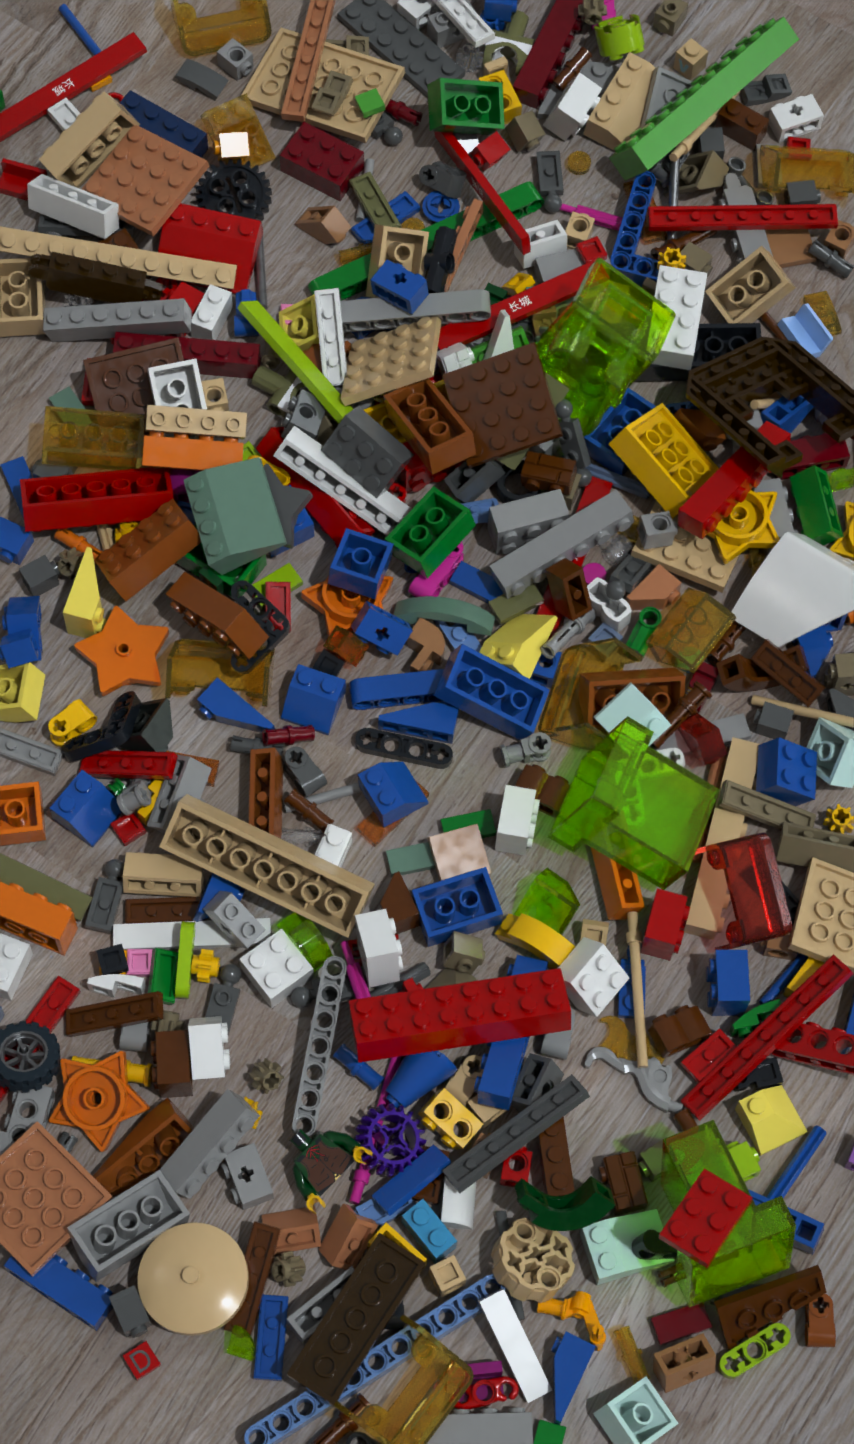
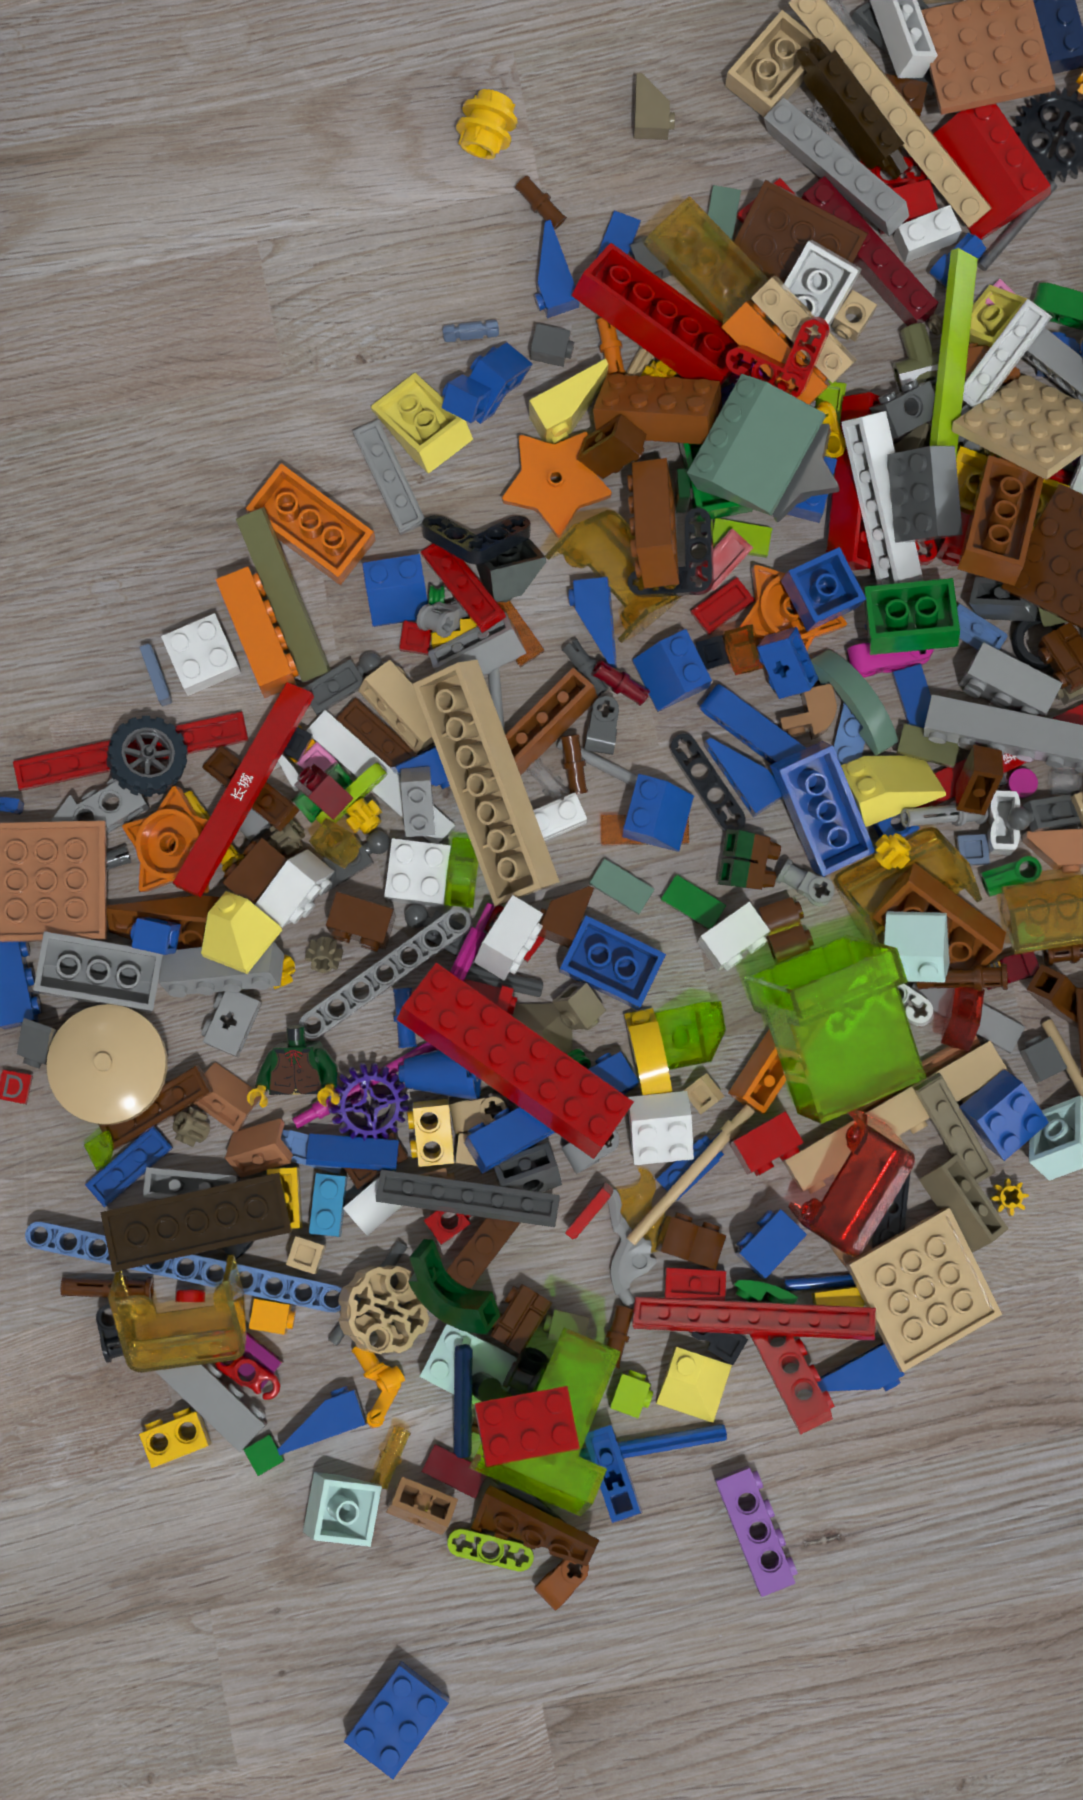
camera: 45 degrees right, 15 degrees up
(70, 562) = (586, 356): dark tan gear -> none
(71, 722) = (457, 502): yellow piece -> none
(112, 1016) = (243, 790): none -> red tile
(142, 596) = (612, 447): none -> reddish brown brick
(143, 1162) = (155, 935): none -> blue brick
(166, 967) = (323, 791): none -> dark red brick
(196, 992) = (328, 836): none -> clear yellow brick
(199, 1106) = (237, 933): none -> light yellow slope
(212, 449) = (792, 368): none -> red beam
(270, 1030) = (360, 921): none -> reddish brown brick
(304, 636) = (722, 606): none -> red tile
(397, 1380) = (190, 1296): none -> red tile
(458, 852) = (660, 919): tile -> none
(465, 1338) = (272, 1316): none -> light orange brick
(476, 768) = (752, 848): none -> hips
(515, 1345) = (305, 1360): white tile -> none
(560, 678) = (892, 851): none -> yellow gear
(598, 1072) = (589, 1211): none -> red tile
(642, 1267) = (463, 1401): none -> dark blue axle
(662, 1206) = (526, 1370): none -> black piece

